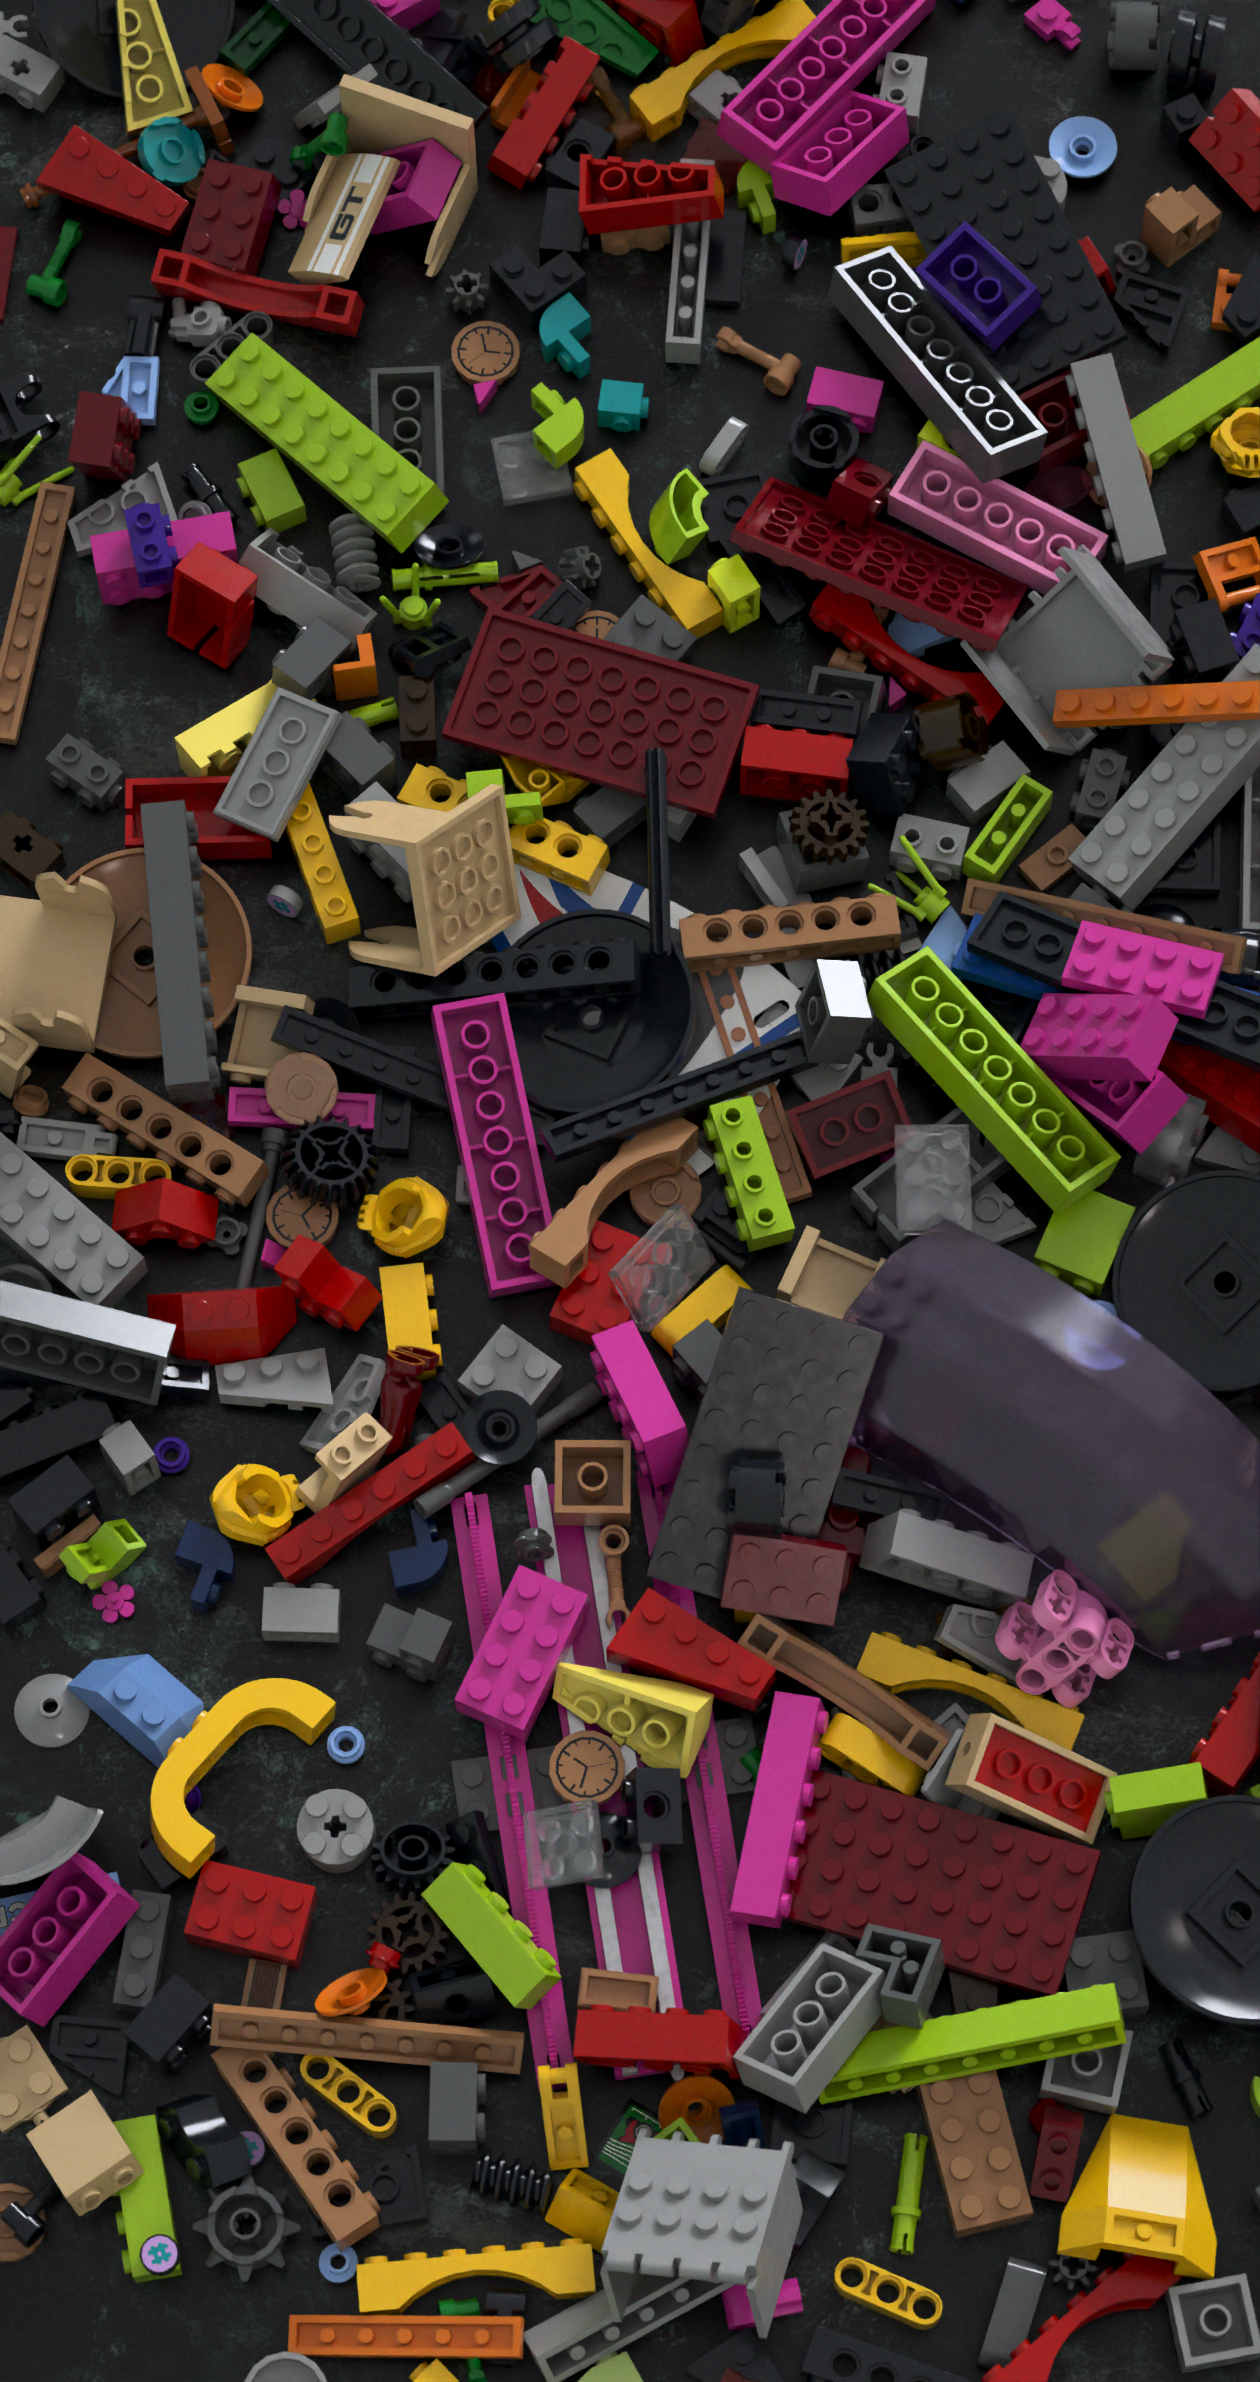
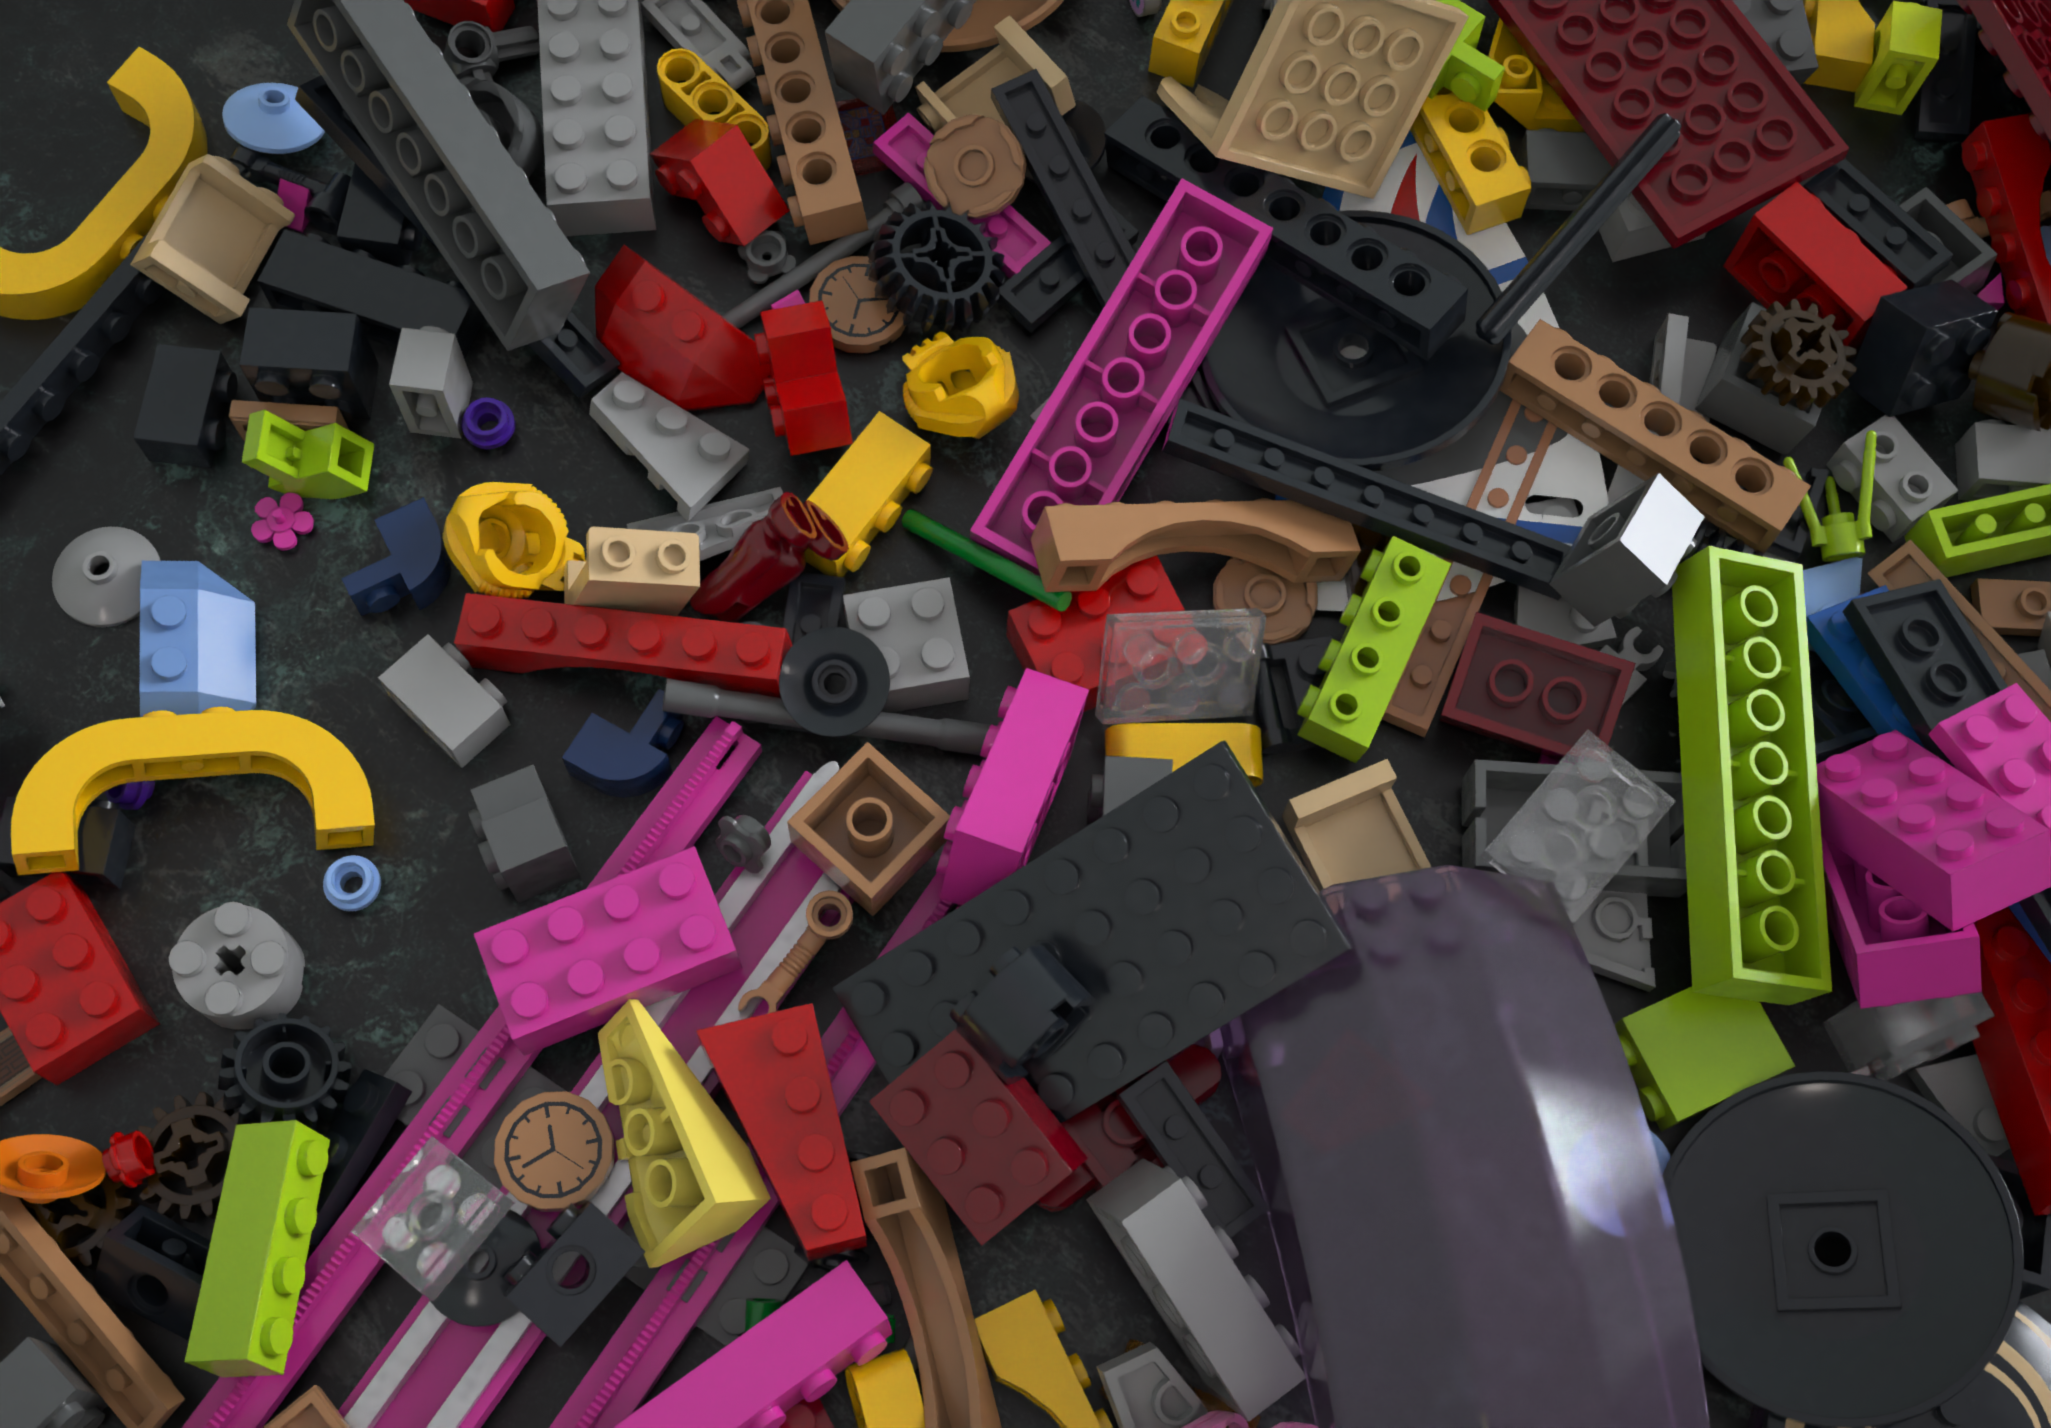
camera: 35 degrees right, 0 degrees up
(506, 1299) = (984, 559): none -> green bar

